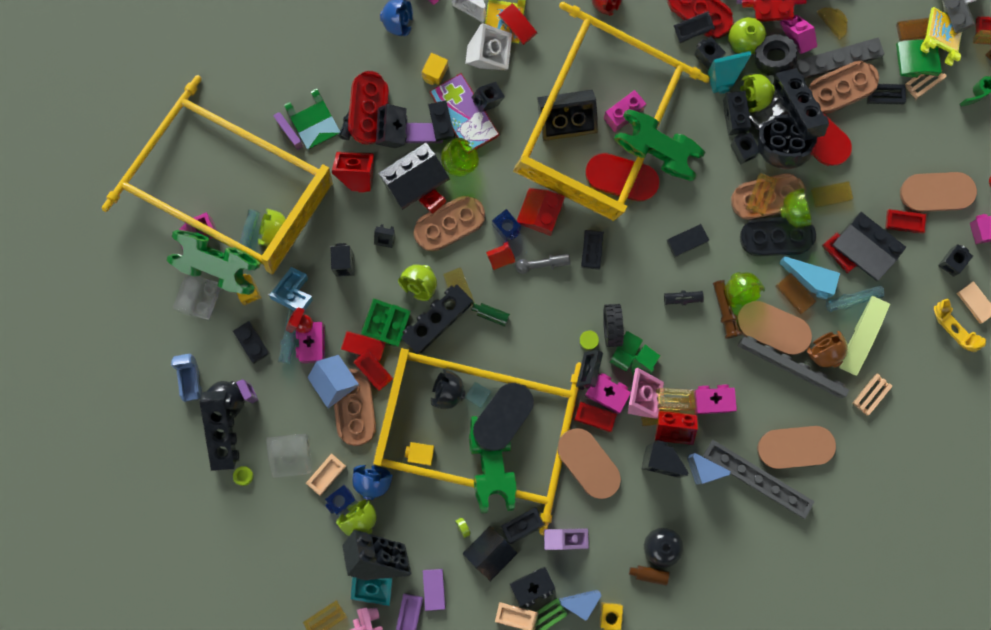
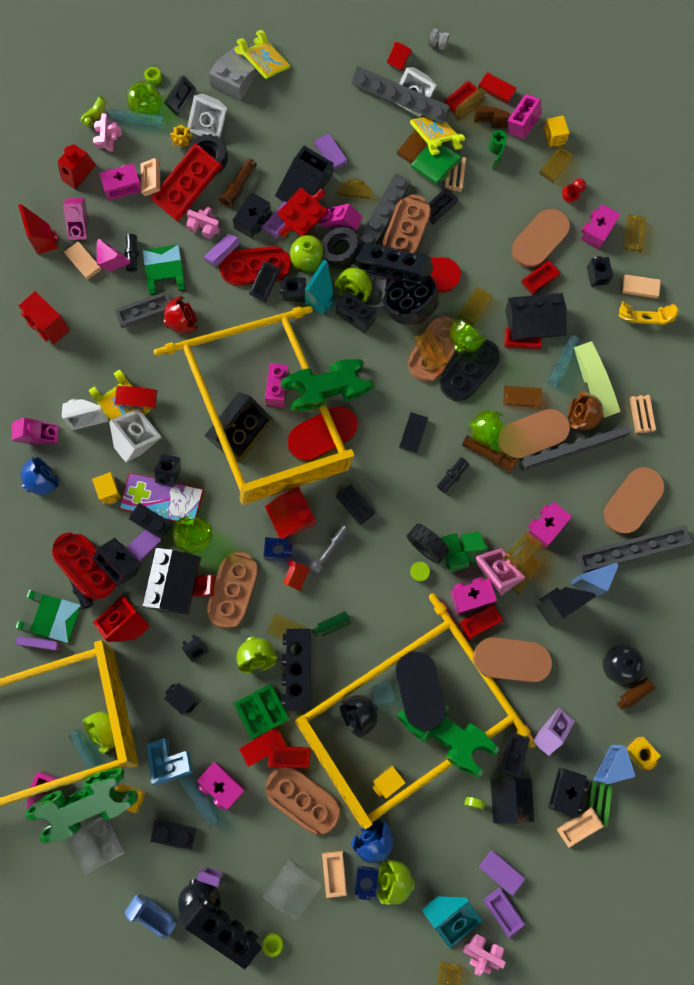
camera: 50 degrees left, 5 degrees down
(300, 322) = (197, 780): red tile -> none
(332, 379) = (266, 797): medium blue slope -> none
(374, 557) = (438, 898): black slope -> none
(589, 369) = (445, 590): black tile -> none
(676, 428) = (544, 570): red bracket -> none
(741, 154) = (385, 337): black brick -> none
(814, 278) = (523, 374): medium azure slope -> none

